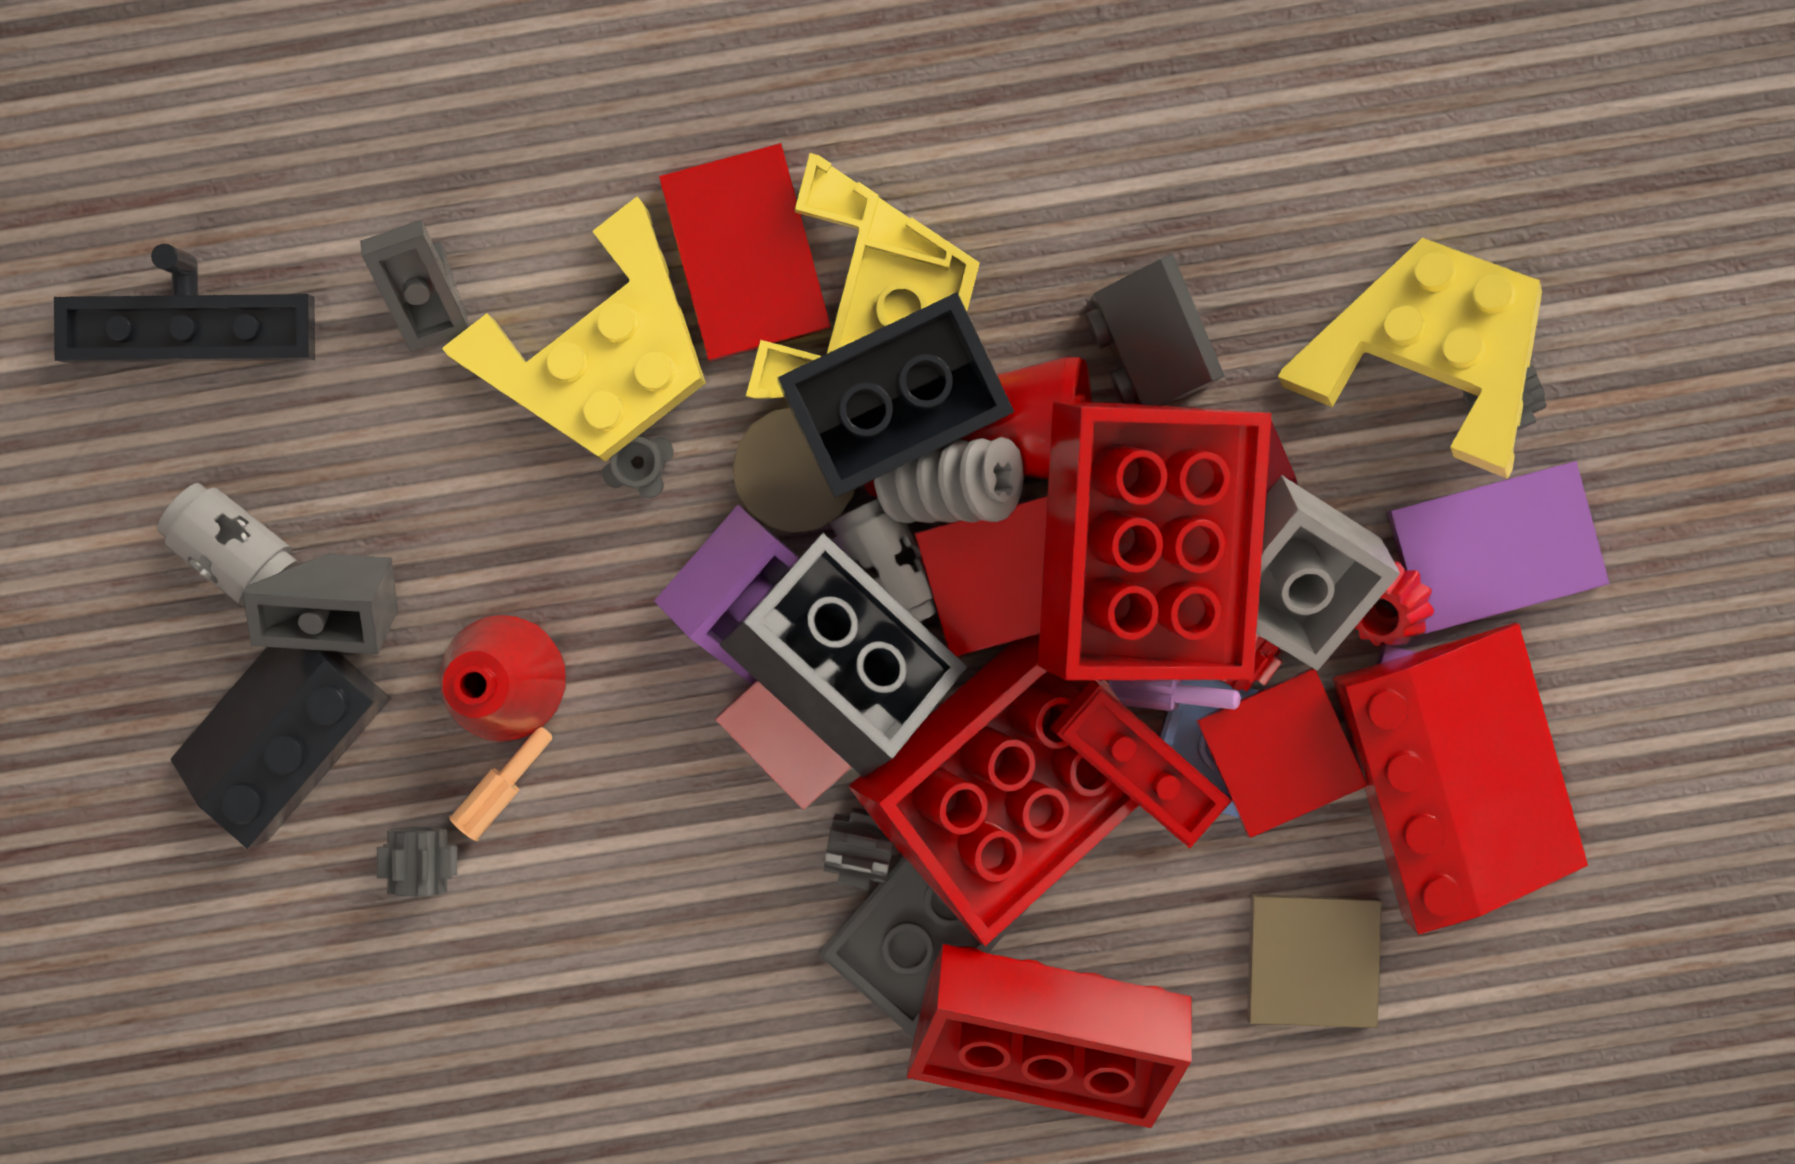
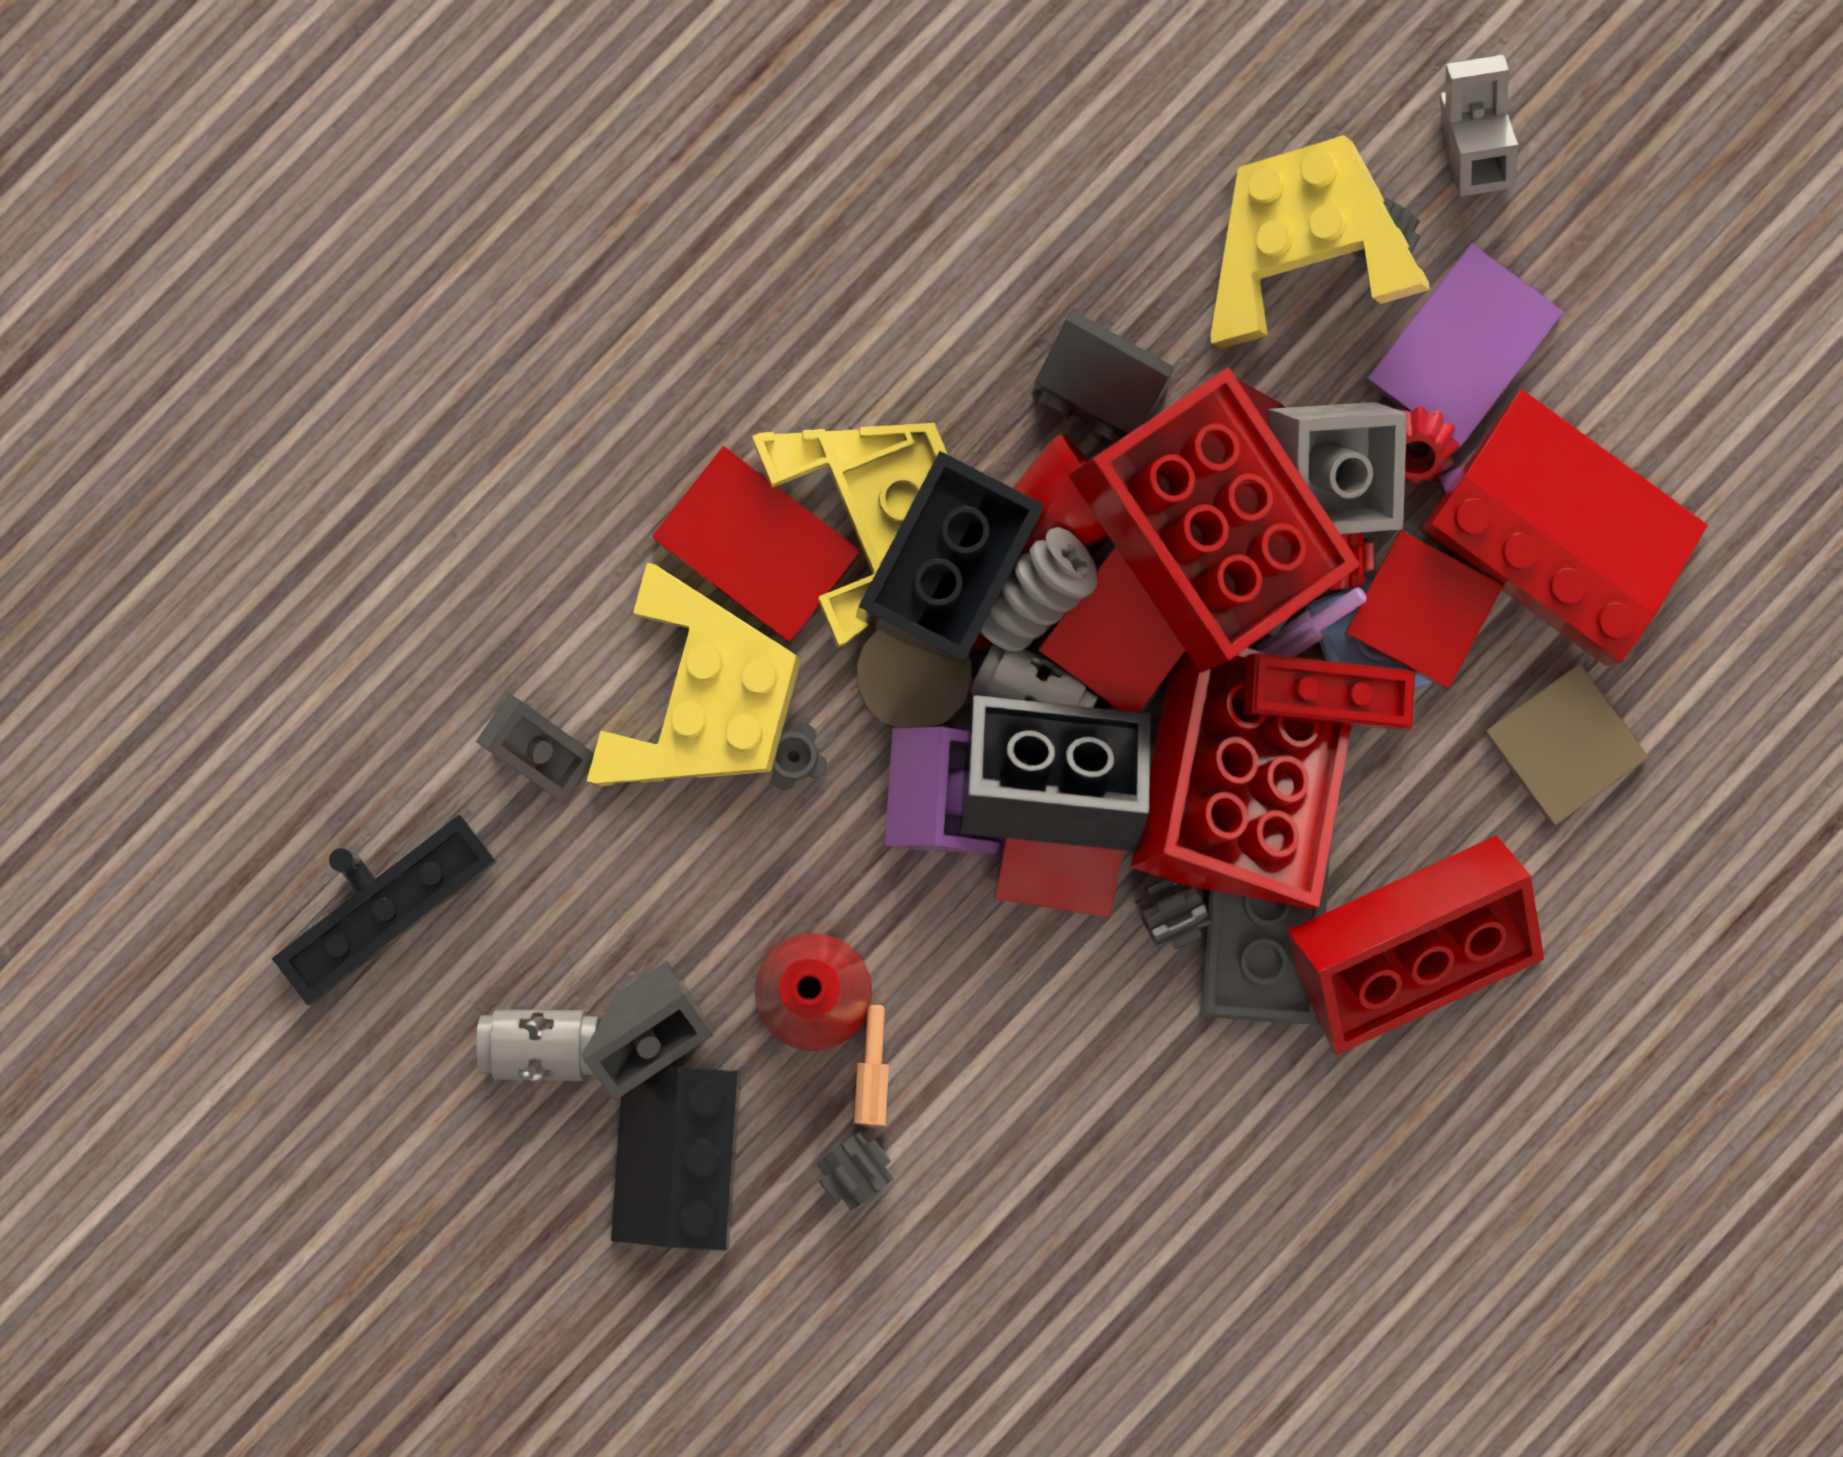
camera: 35 degrees left, 5 degrees down
(1663, 362) = (1477, 126): none -> light grey brick

